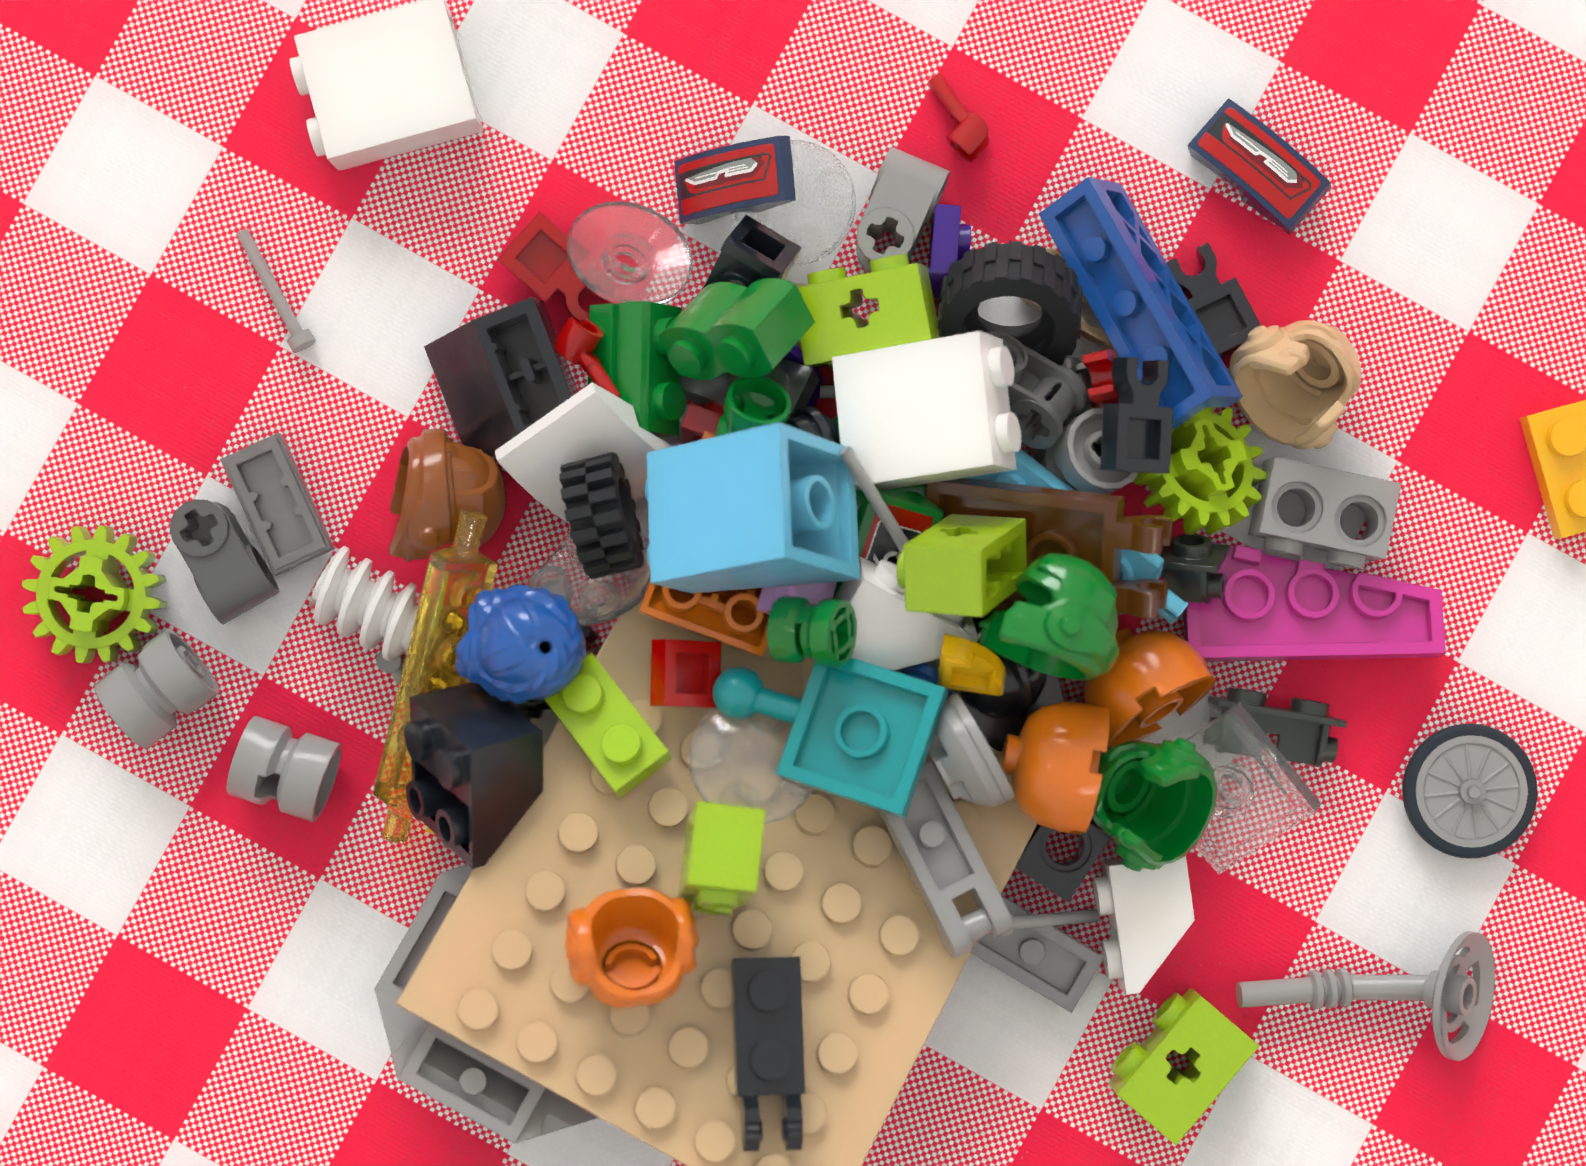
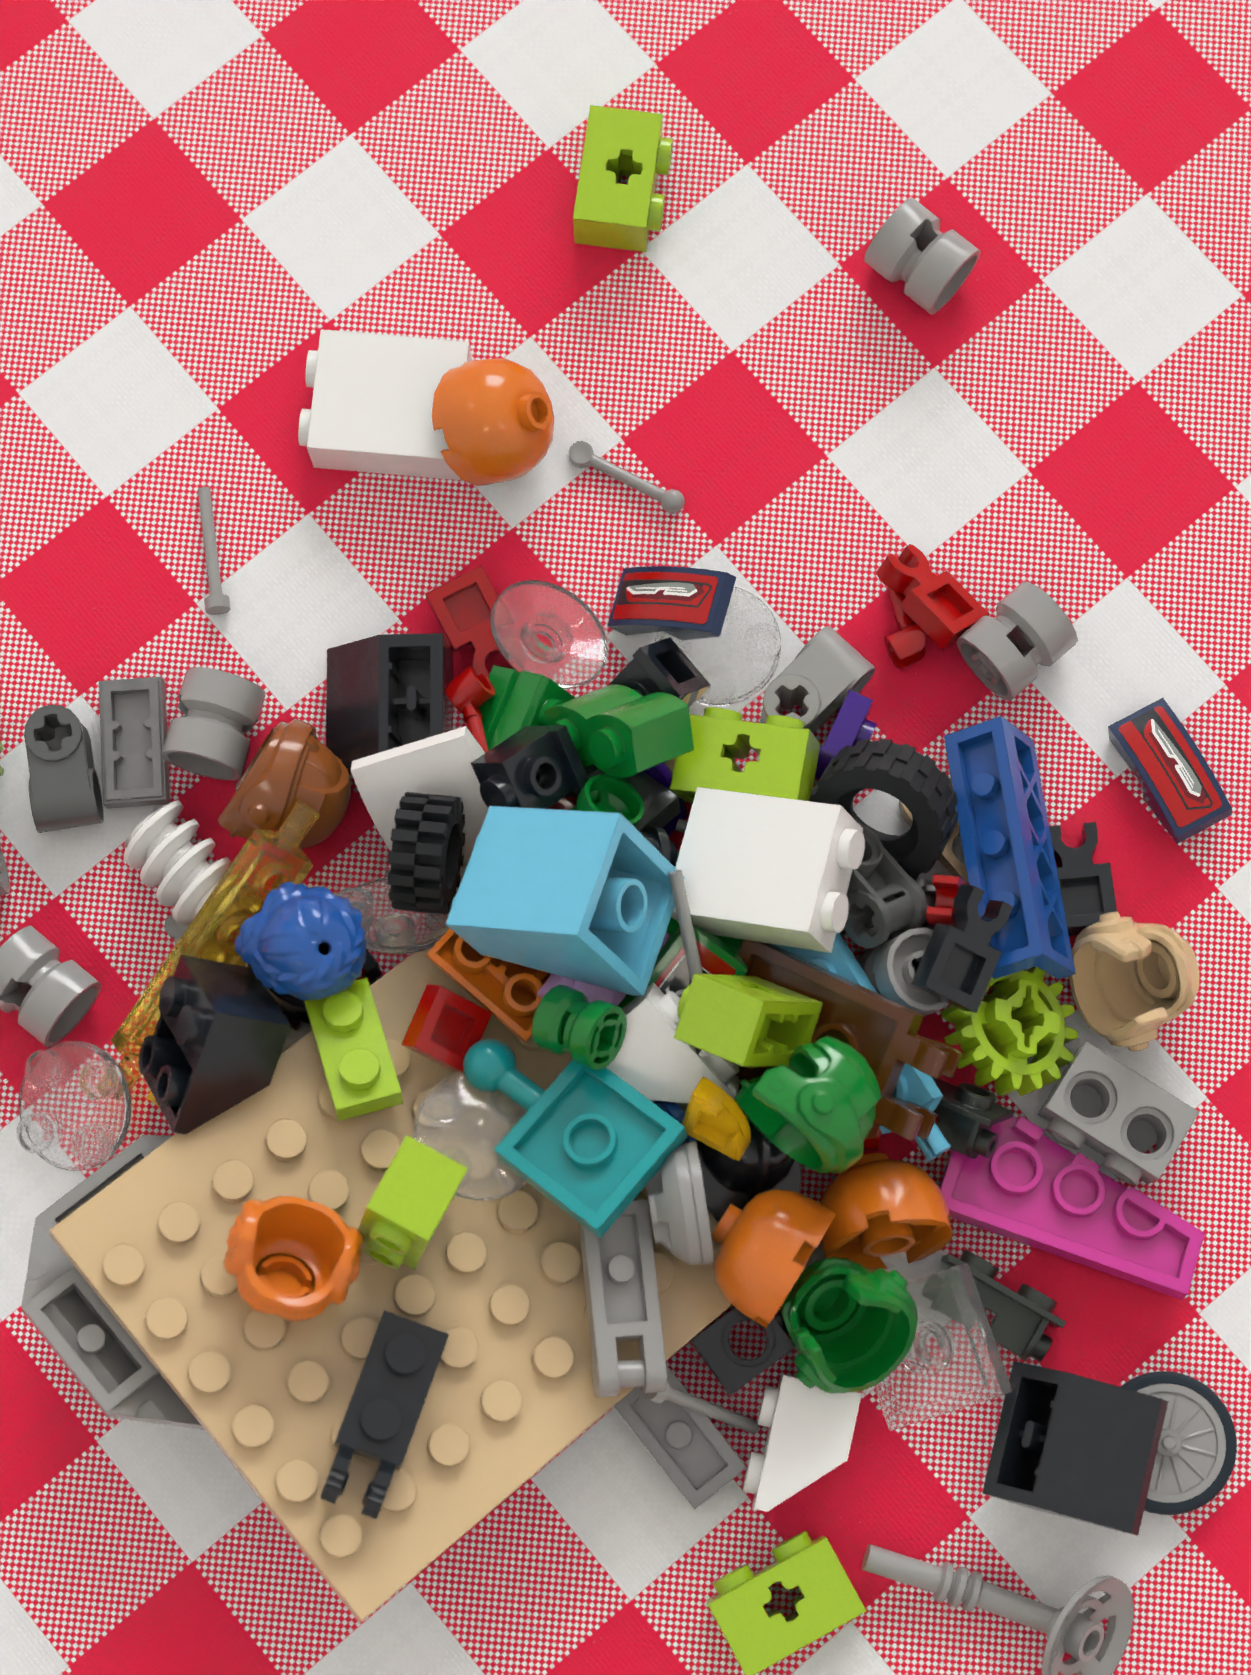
camera: 25 degrees right, 10 degrees down
(346, 459) = (216, 713): none -> light grey wheel
(362, 865) = (73, 1105): none -> clear dish
(496, 65) = (493, 420): none -> orange cylinder
(592, 64) = (582, 456): none -> light grey hinge
(668, 400) = (530, 769): none -> black brick
(981, 85) = (931, 601): none -> red plate
(1084, 75) = (1025, 633): none -> light grey wheel
(1395, 832) = (1075, 1447): none -> black slope

